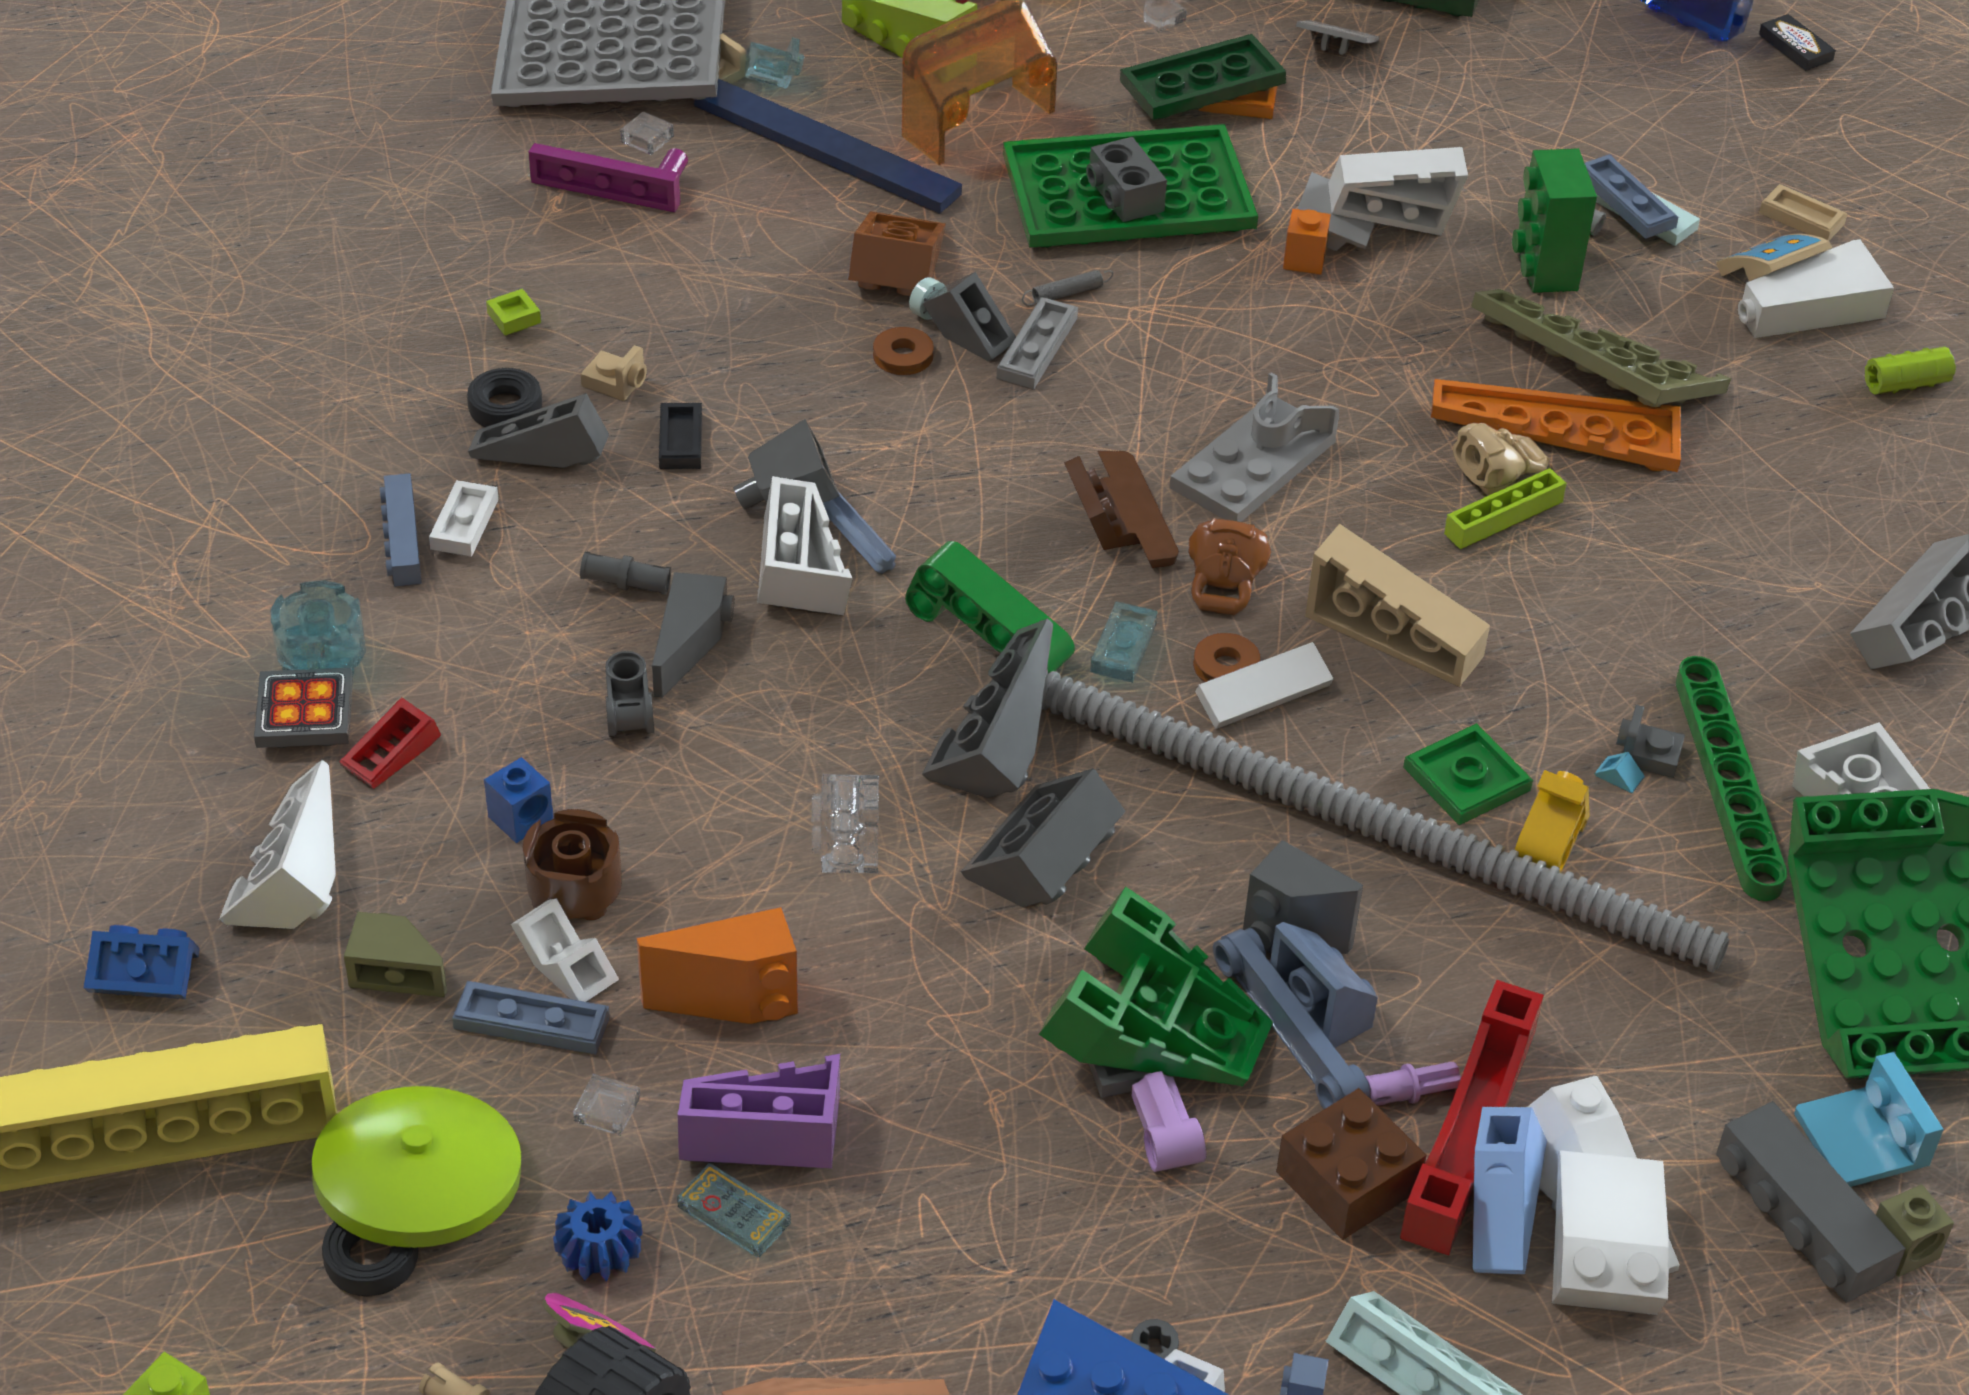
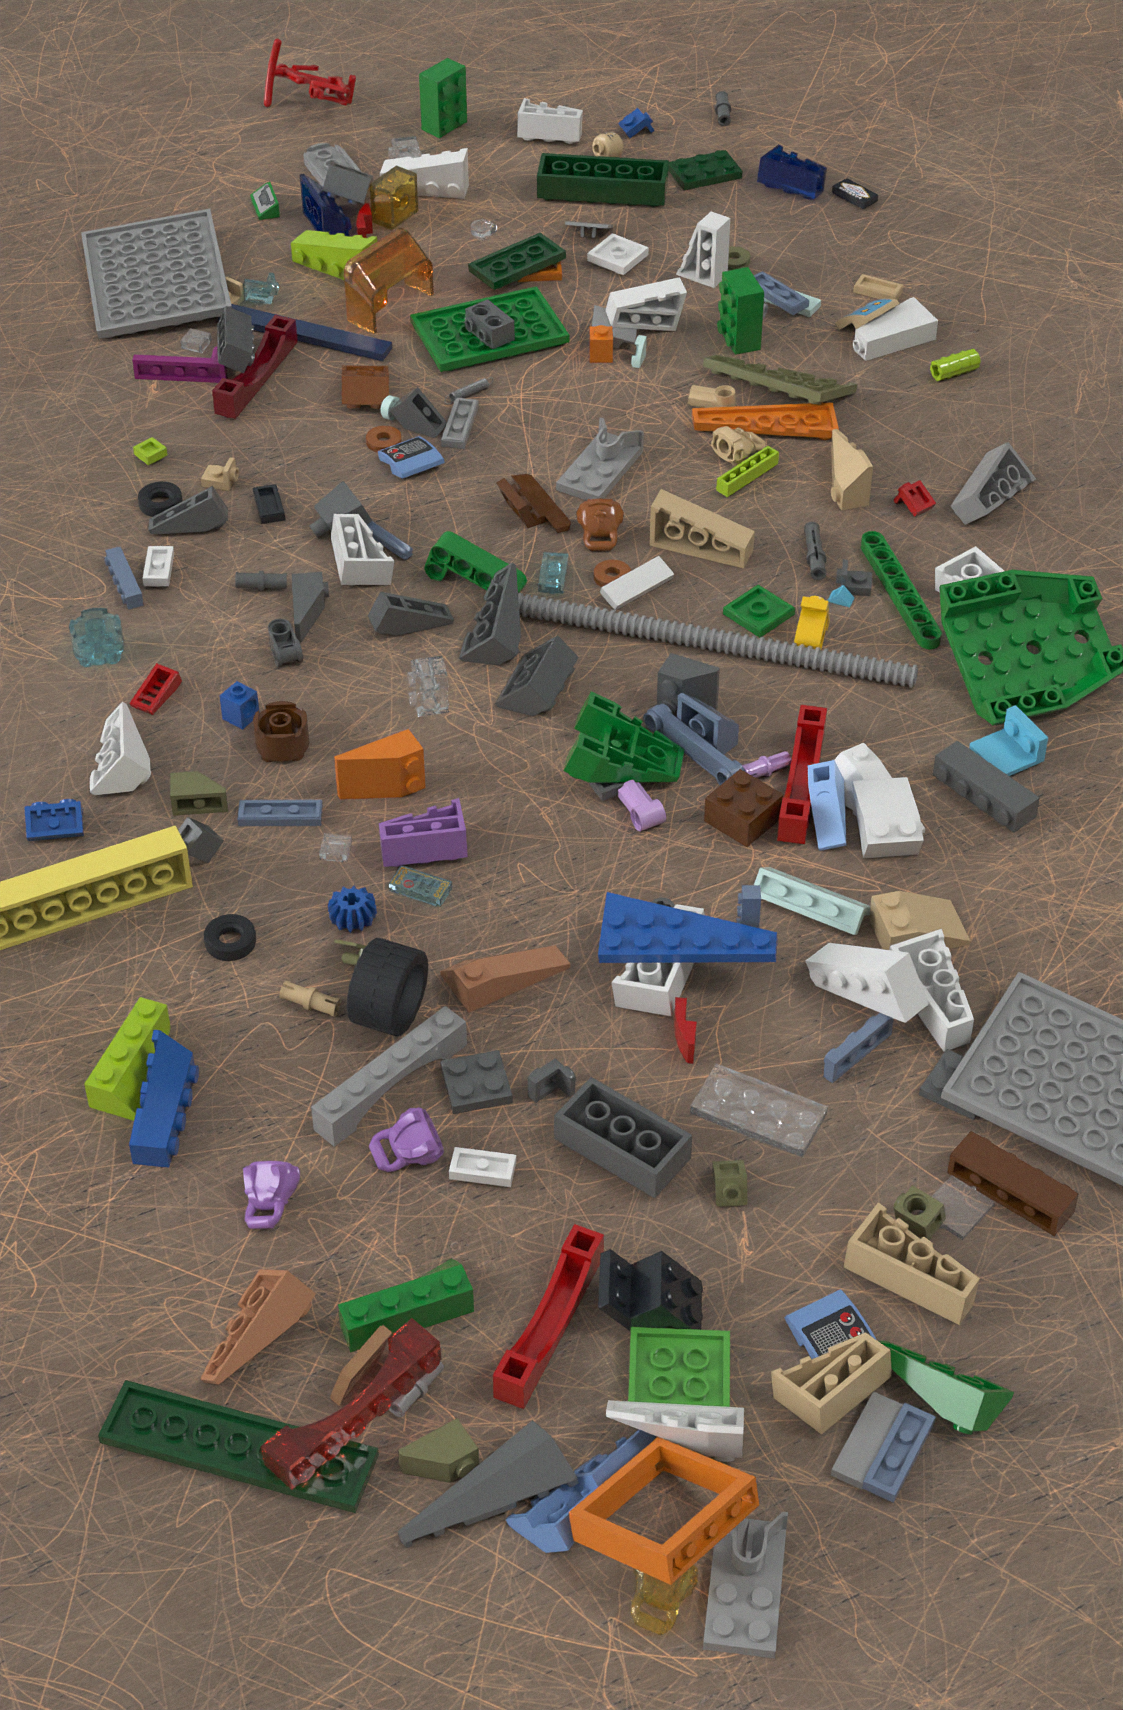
camera: 10 degrees left, 0 degrees up
(303, 707) = (100, 678): tile -> none
(367, 1049) = (200, 839): none -> dark grey brick
(416, 1166) = (242, 892): lime dish -> none
(555, 950) = (281, 776): white slope -> none
(675, 237) = (233, 395): none -> dark red arch
(704, 143) = (235, 340): none -> dark grey brick
(852, 679) = (406, 615): none -> dark grey slope
(938, 390) = (411, 457): none -> medium blue slope
(1373, 262) = (640, 355): none -> light aqua tile
(1374, 88) = (617, 254): none -> white plate
(1471, 365) = (709, 397): none -> tan piece
(1522, 106) = (707, 251): none -> white wedge
(1553, 129) = (743, 258): none -> olive piece
(1590, 708) = (817, 566): none -> dark grey pin
(1683, 543) = (850, 473): none -> tan wedge
(1790, 606) = (915, 497): none -> red bracket
(1919, 1226) = (1045, 786): olive brick -> none

